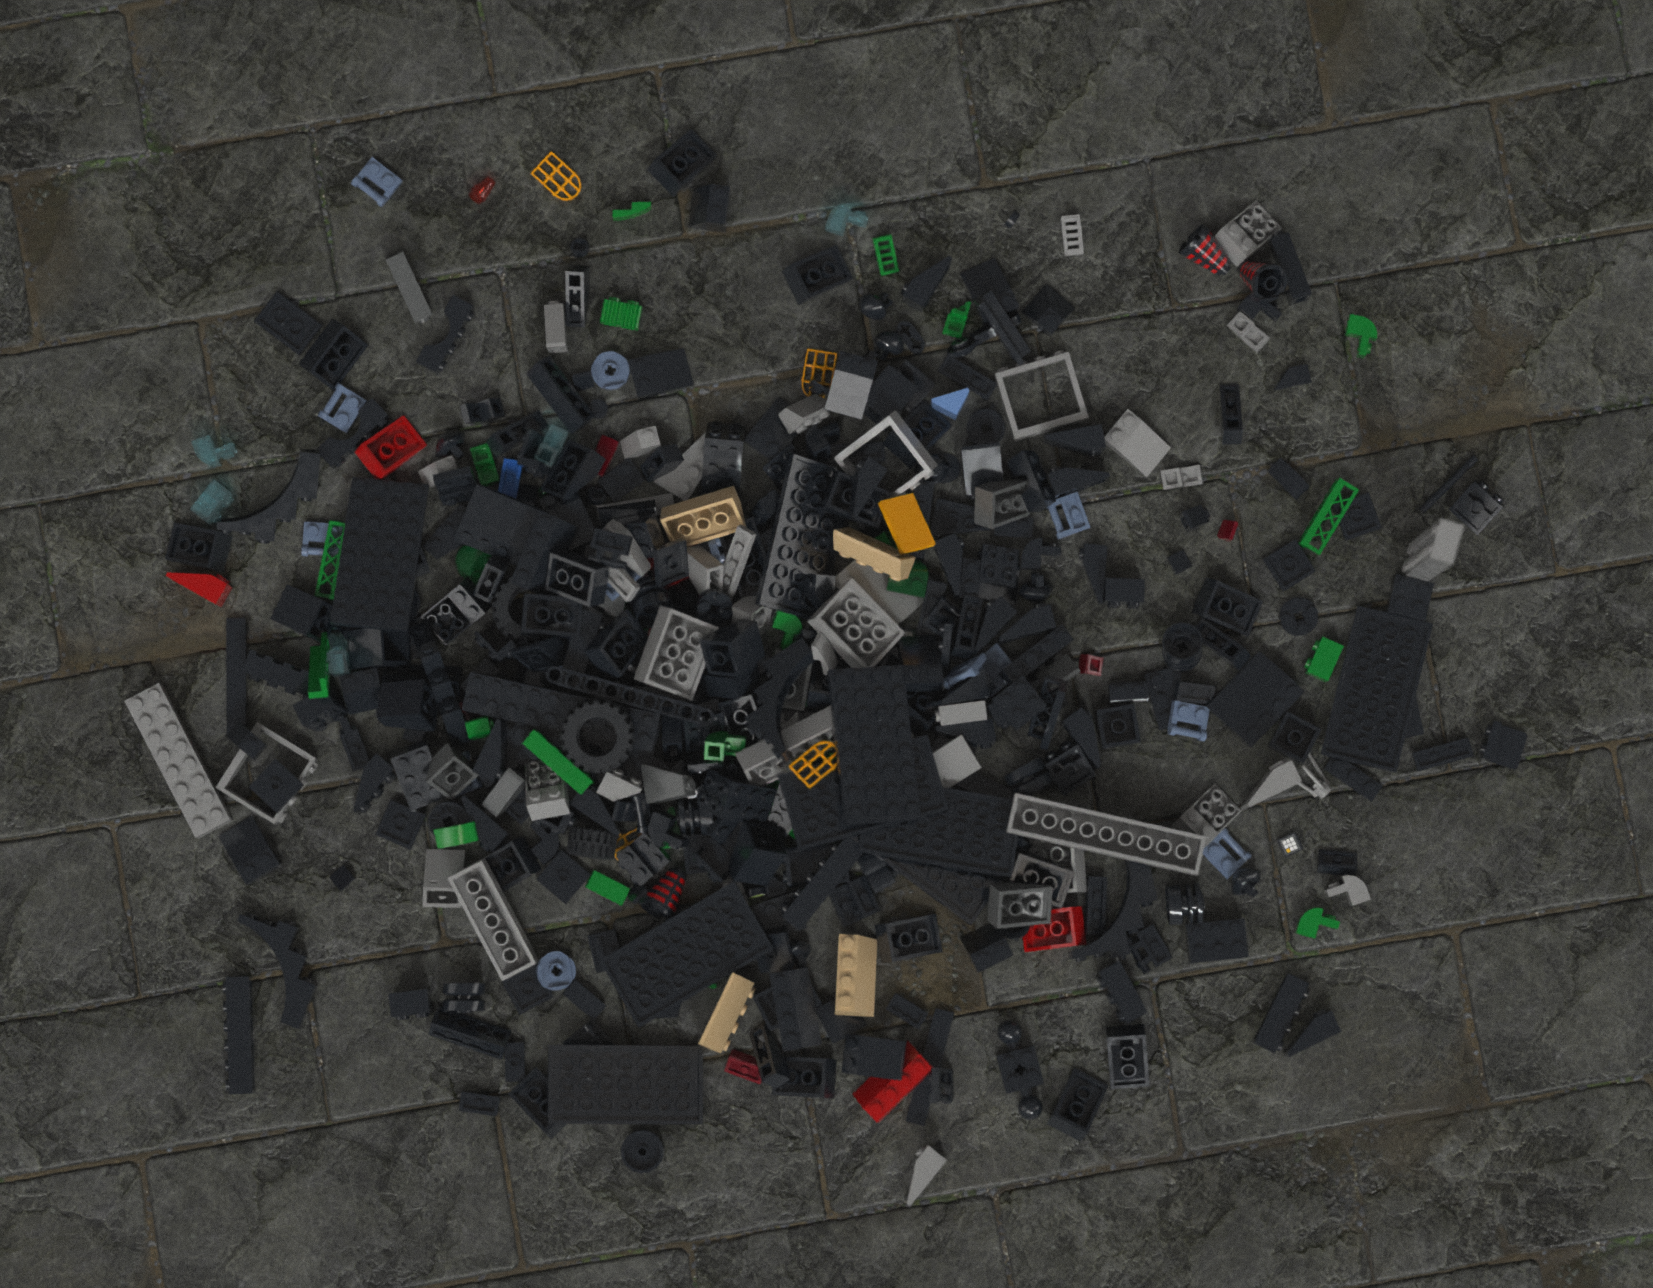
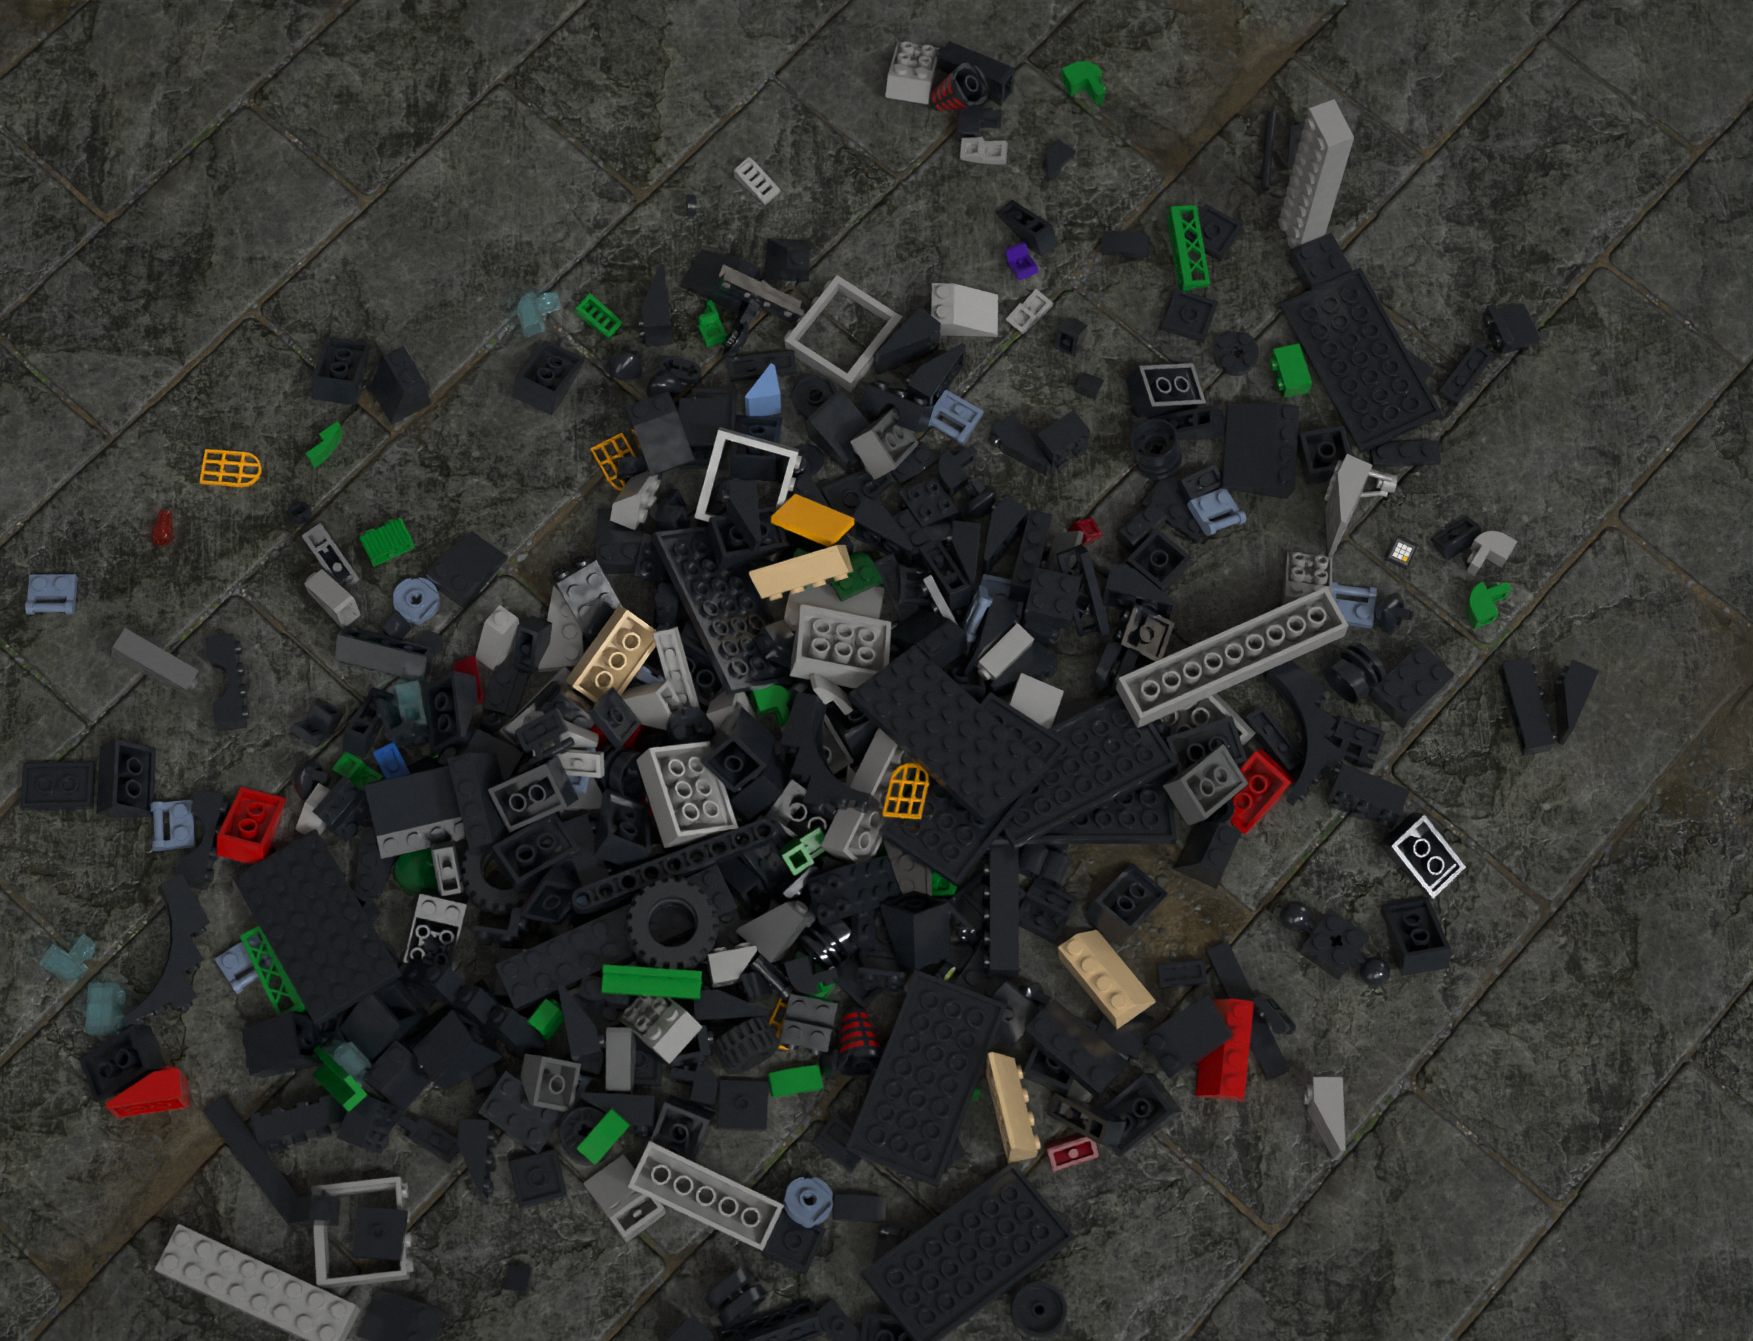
camera: 40 degrees left, 15 degrees down
(1204, 437) = (1020, 261): none -> dark purple bracket
(1205, 251) = (889, 108): black cone -> none
(1227, 530) = (1109, 325): dark red slope -> none

